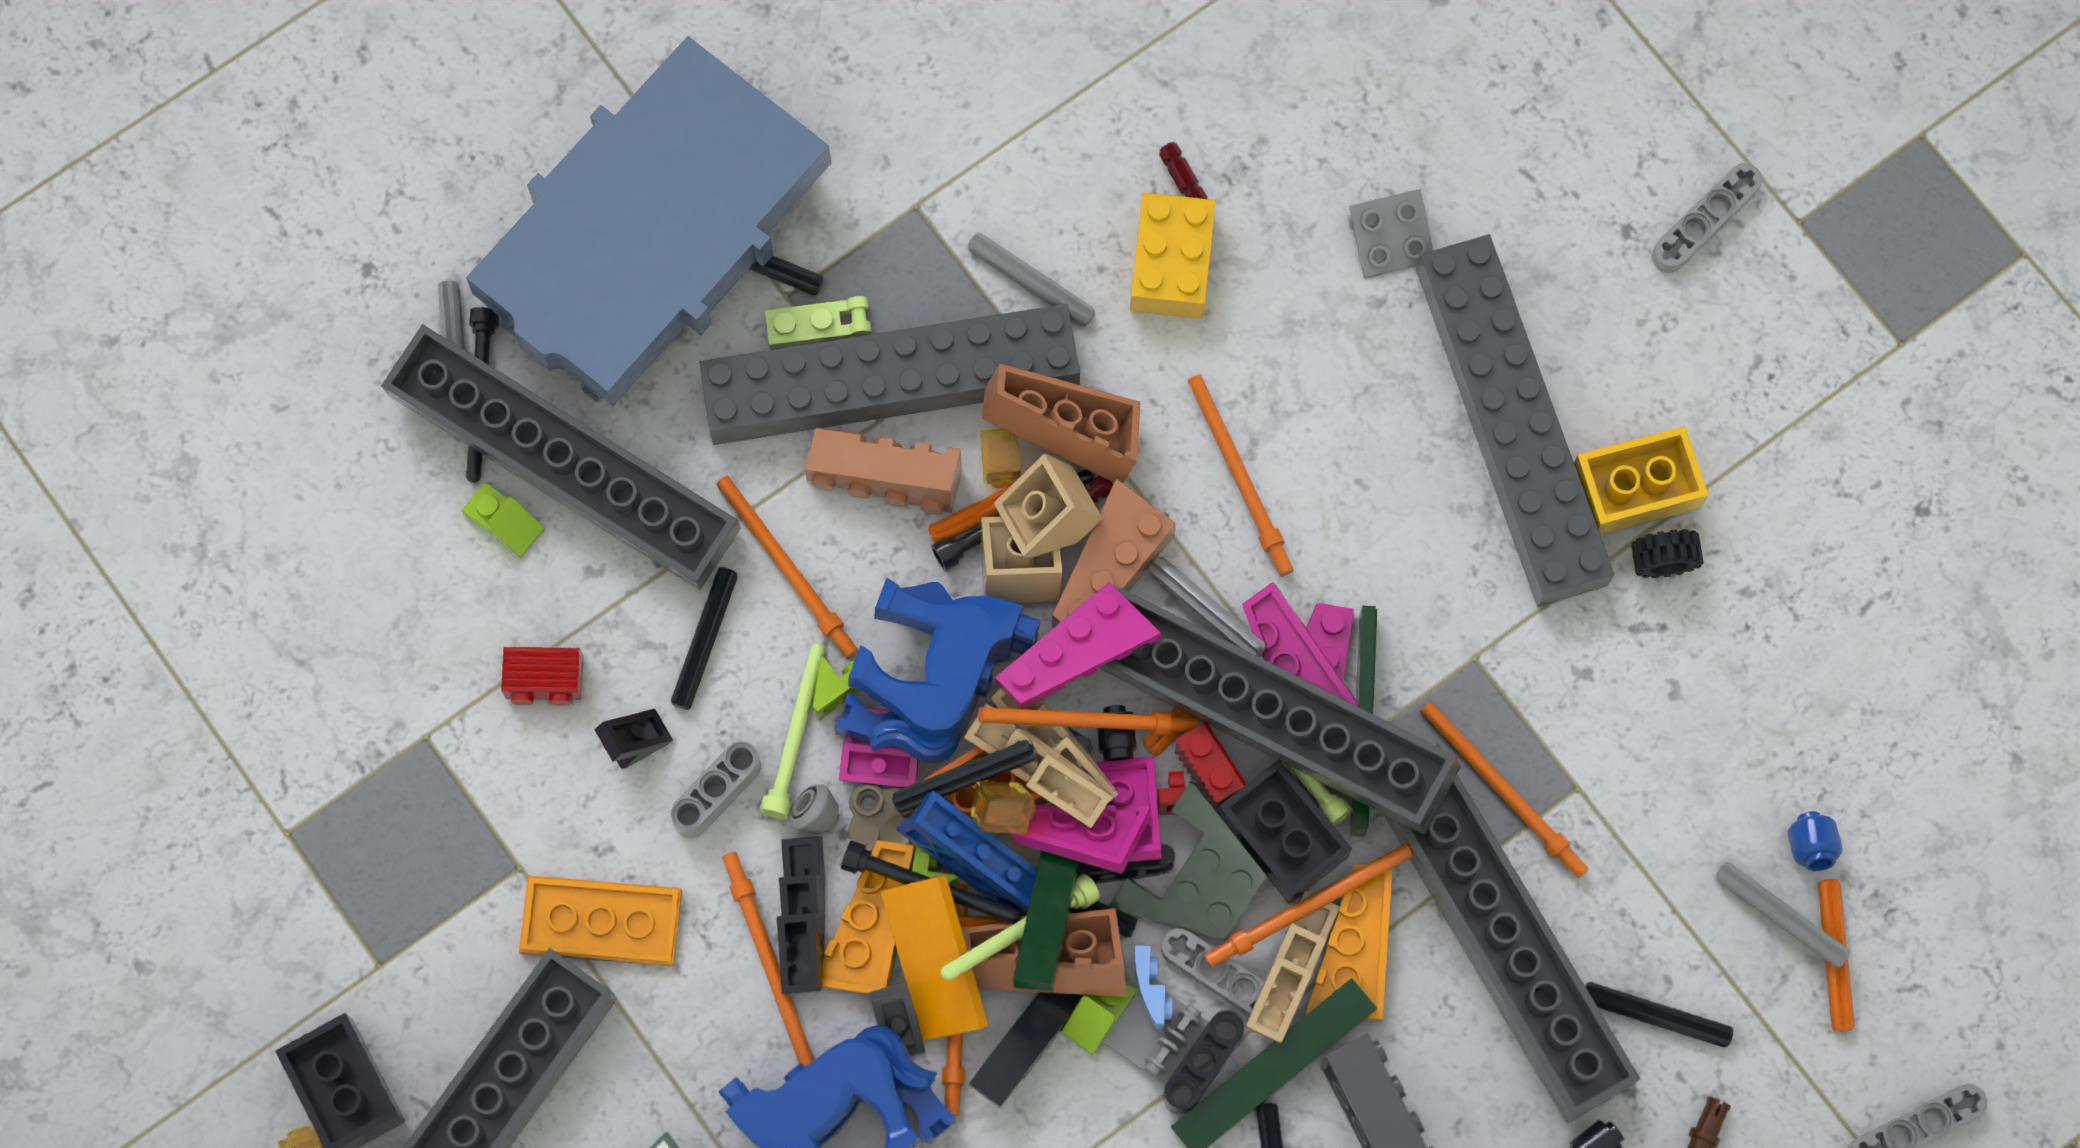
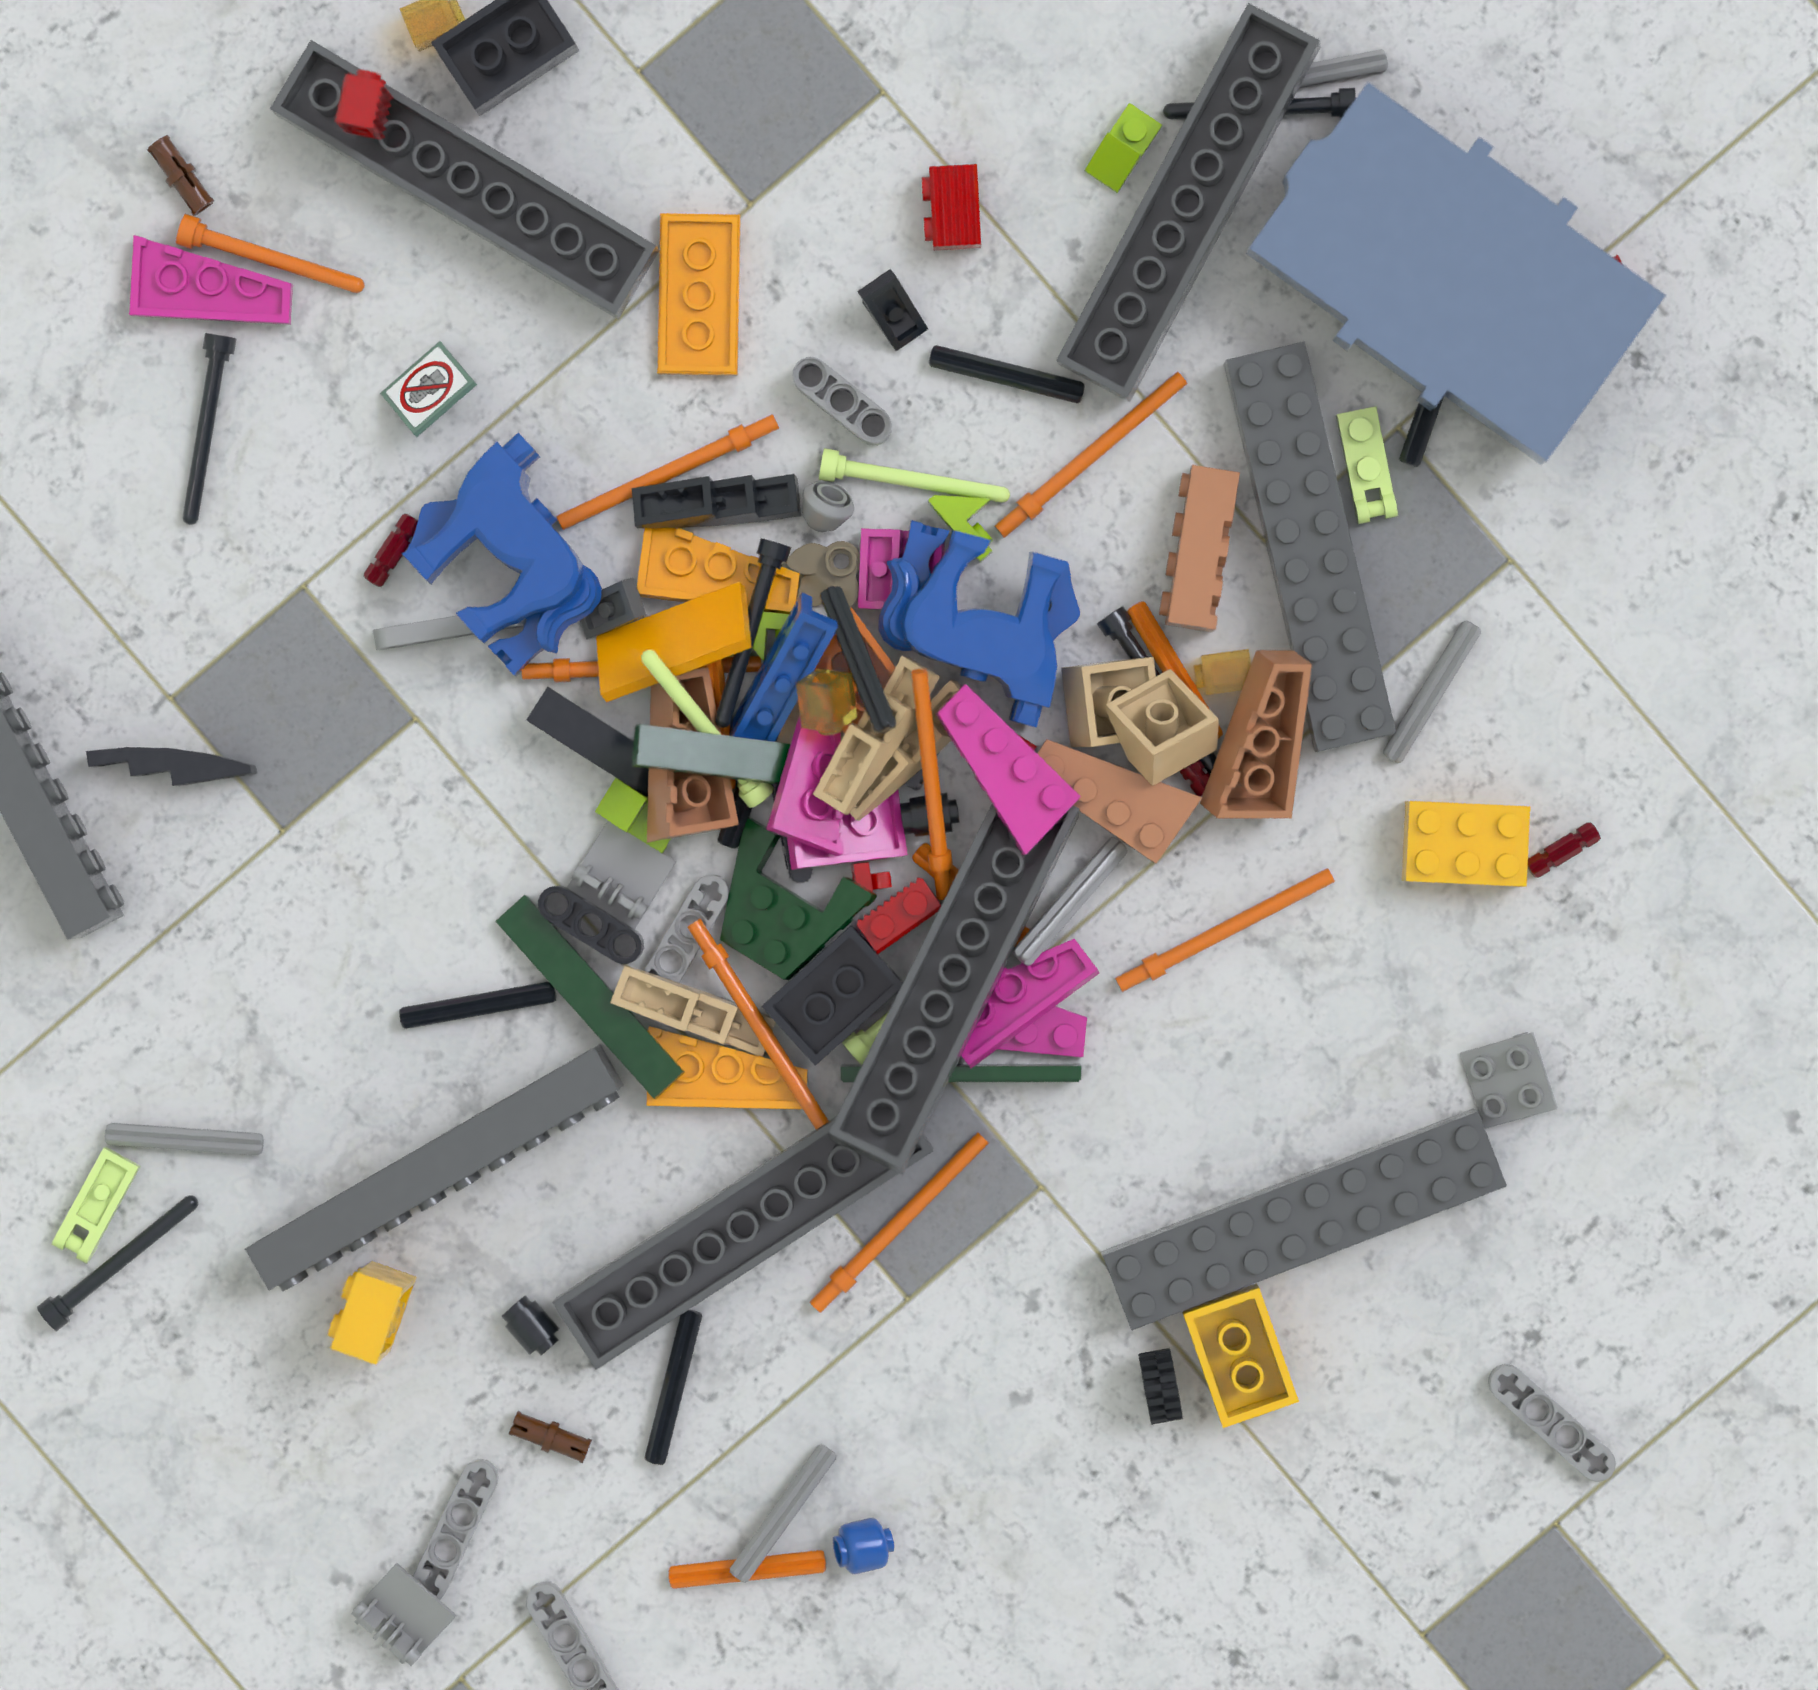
camera: 90 degrees right, 15 degrees up
(1153, 998) = (649, 870): light blue slope -> none

